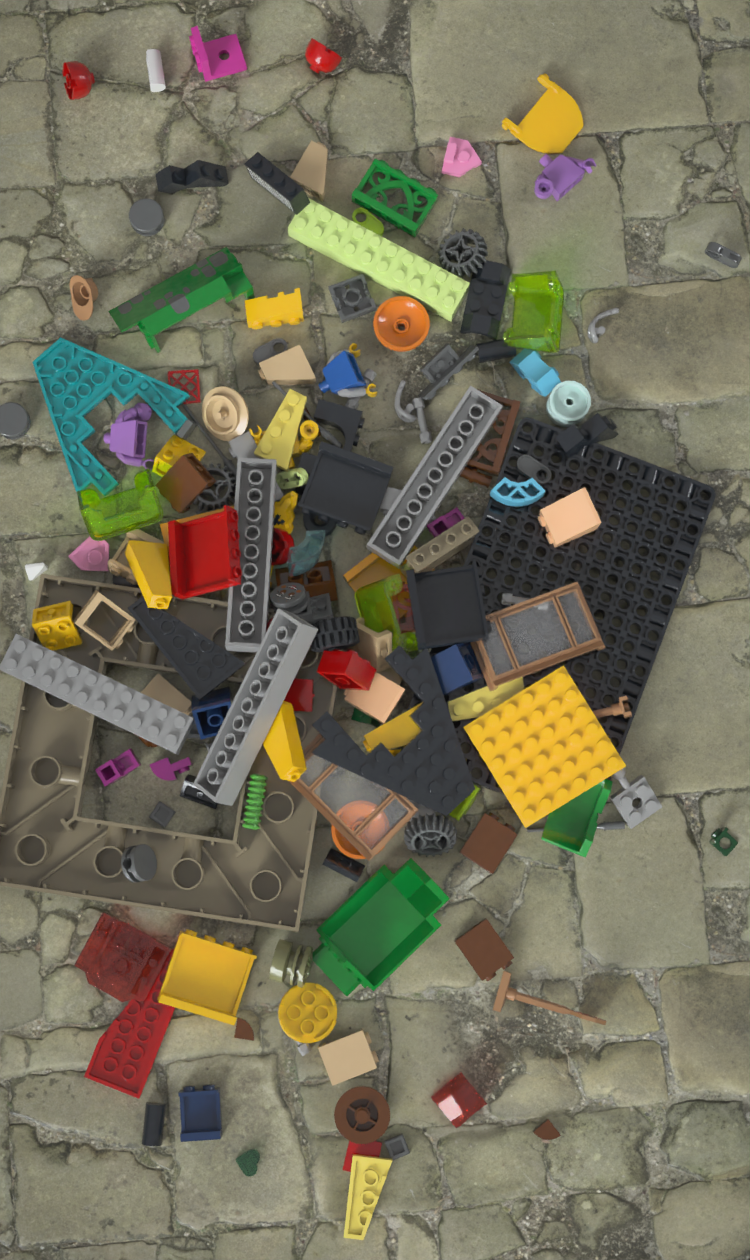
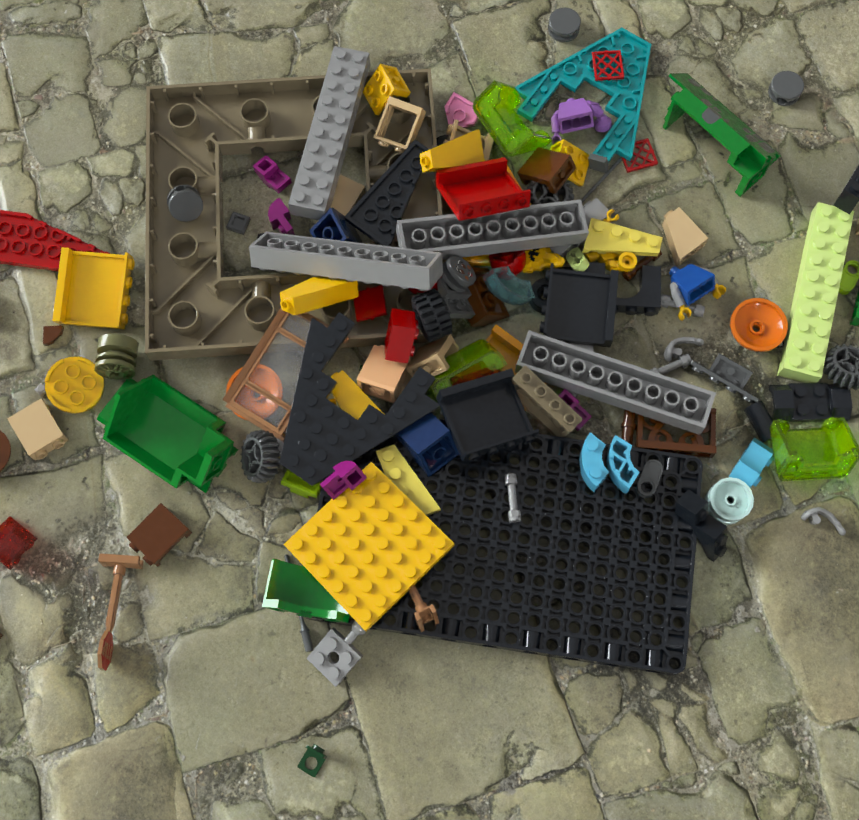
camera: 80 degrees right, 10 degrees down
(35, 570) = (436, 72): white slope -> none
(77, 376) = (607, 65): none -> red window
(83, 295) = (697, 54): medium nougat piece -> none
(122, 959) = (101, 215): clear red slope -> none
(195, 175) = (841, 118): black arch -> none
(225, 413) = (622, 188): tan piece -> none
(255, 801) = (259, 287): bright green piece -> none
(267, 350) = (695, 215): dark grey piece -> none
(275, 310) = (735, 212): yellow wedge -> none
(326, 434) = (628, 282): dark grey piece -> none
(344, 865) = (218, 387): black plate -> none
(356, 295) = (768, 274): dark grey brick -> none
(475, 754) = (346, 475): none -> magenta brick
(488, 842) = (265, 517): reddish brown brick -> none
(508, 519) = (591, 462): none -> medium azure brick
(536, 635) = (482, 515): piece -> none
(569, 518) = (608, 521): light nougat slope -> none

